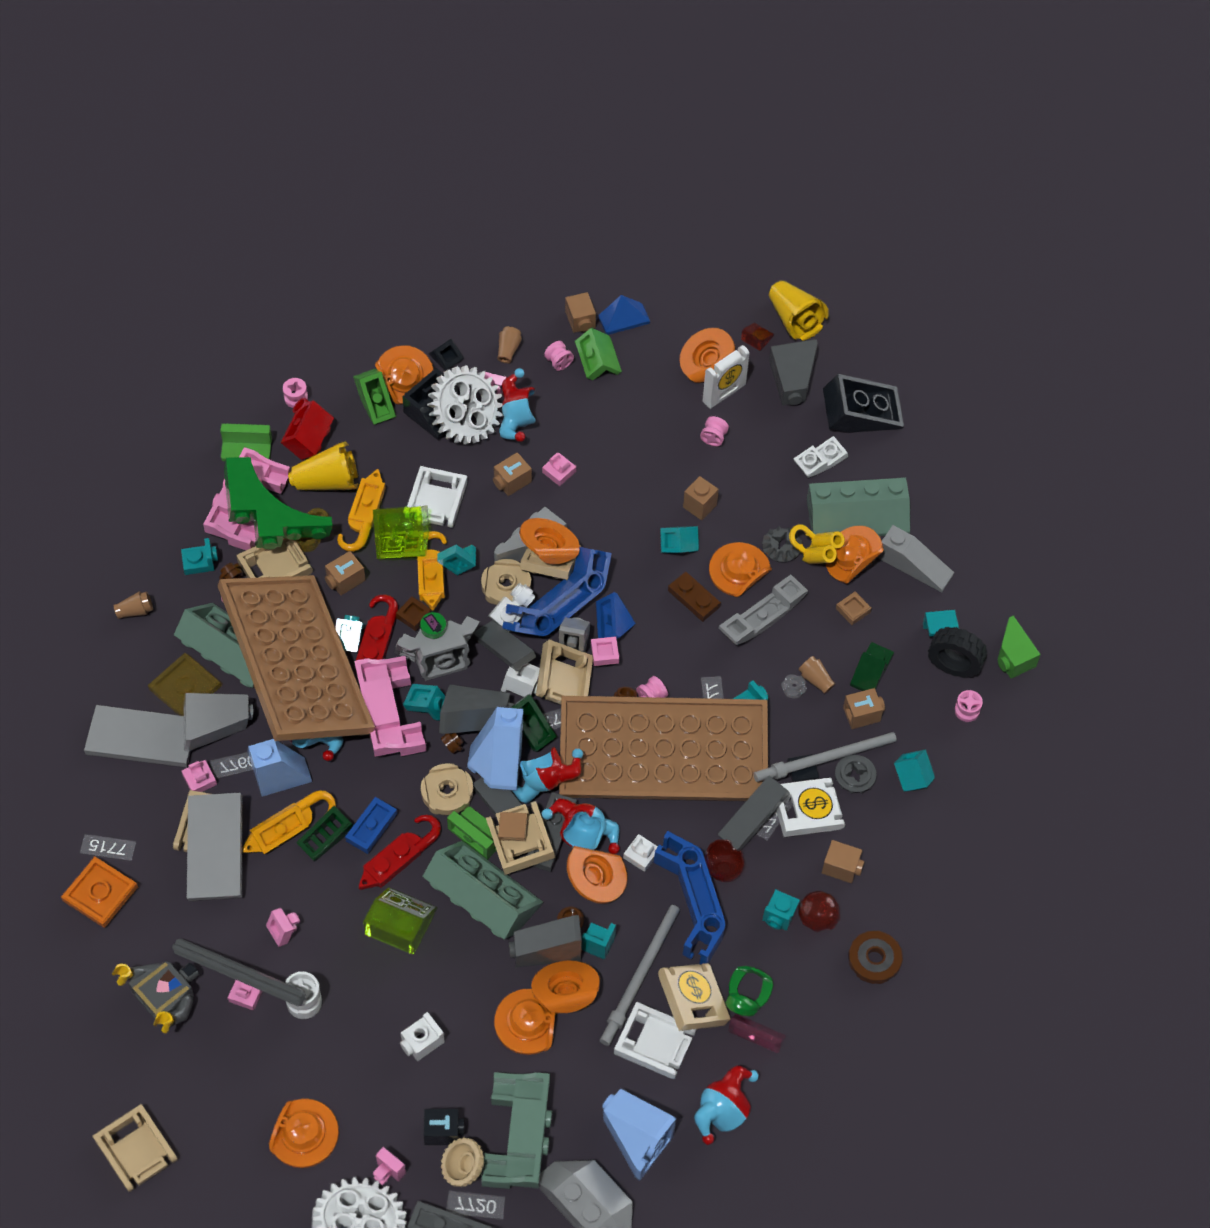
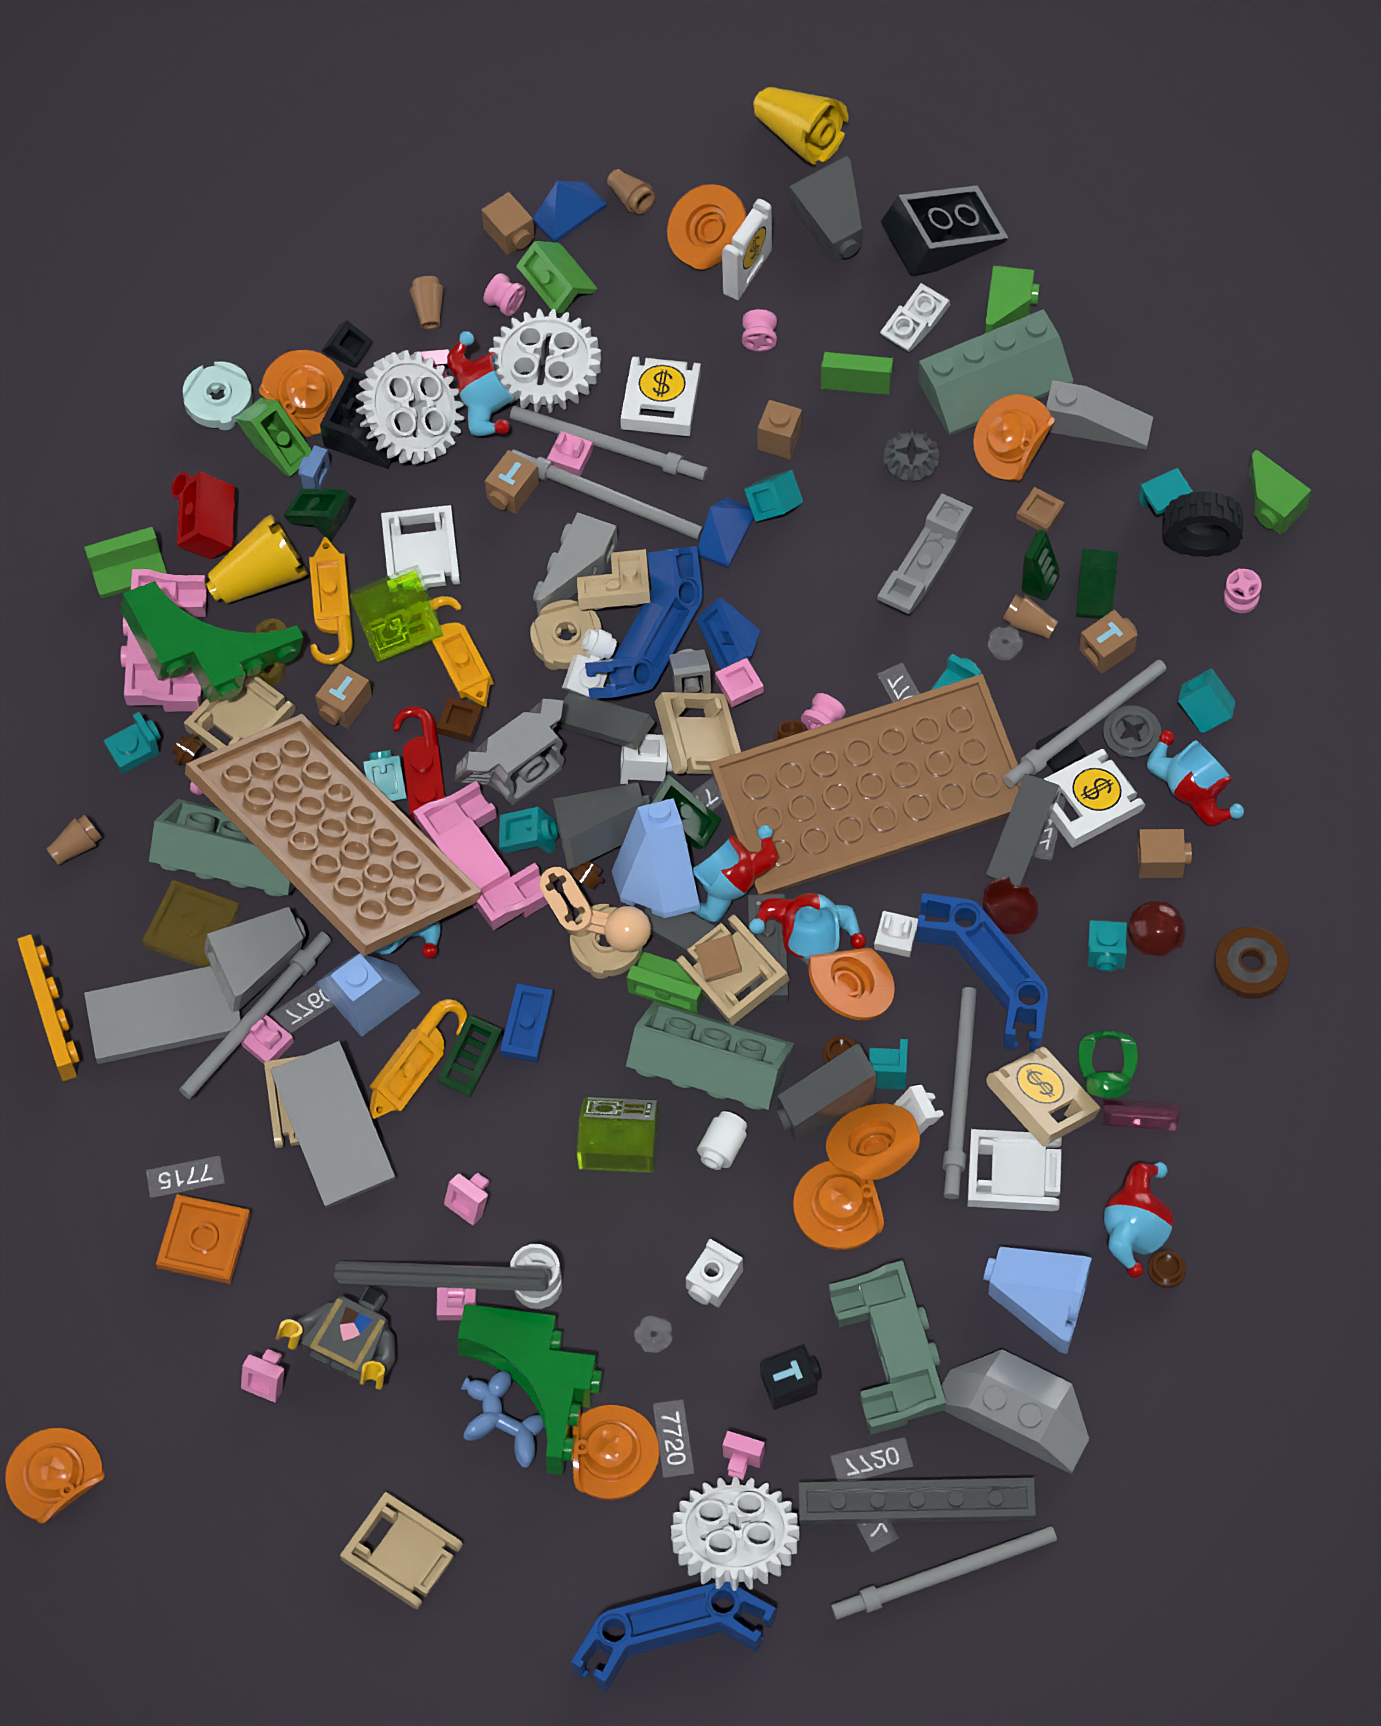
camera: 15 degrees left, 5 degrees up
(67, 712) = (53, 1020): none -> light orange plate
(97, 996) = (263, 1375): none -> bright pink tile
(234, 1080) = (493, 1417): none -> medium blue piece
(242, 735) = (300, 965): none -> light grey bar
(277, 1045) = (532, 1354): none -> green arch
(300, 389) = (170, 467): bright pink wheel -> none
(345, 369) = (221, 412): none -> light aqua plate
(349, 1139) = (673, 1438): none -> clear sticker
(365, 1070) = (656, 1343): none -> clear plate
(383, 450) = (320, 507): none -> dark green slope
(390, 425) = (314, 468): none -> medium blue plate
(398, 855) = (579, 1049): red plate -> none
(433, 625) = (505, 727): green tile -> none
(458, 559) = (490, 624): teal bracket -> none
(458, 784) = (624, 929): none -> light nougat beam
(462, 1162) = (835, 1413): tan hat -> none
(466, 949) = (722, 1141): none -> white brick
(538, 474) = (548, 471): none -> light grey bar
(549, 540) = (607, 557): orange hat -> none
(558, 394) = (576, 364): none -> white gear
(607, 973) = (919, 1105): none -> white tile
(621, 496) = (670, 462): none -> light grey bar
(635, 446) = (664, 387): none -> white container
(638, 551) = (724, 531): none -> blue slope
(669, 319) = (632, 192): none -> medium nougat cone
(694, 596) = (824, 567): reddish brown plate -> none
(731, 1146) = (1167, 1269): none -> reddish brown plate
(737, 567) = (865, 508): orange hat -> none
(756, 336) = (760, 177): clear red slope -> none
(767, 479) = (856, 373): none -> bright green panel
(822, 545) = (968, 443): yellow piece -> none
(836, 643) = (1040, 567): none -> dark green slope
(884, 819) = (1194, 779): none -> piece
(889, 462) = (1010, 296): none -> bright green slope

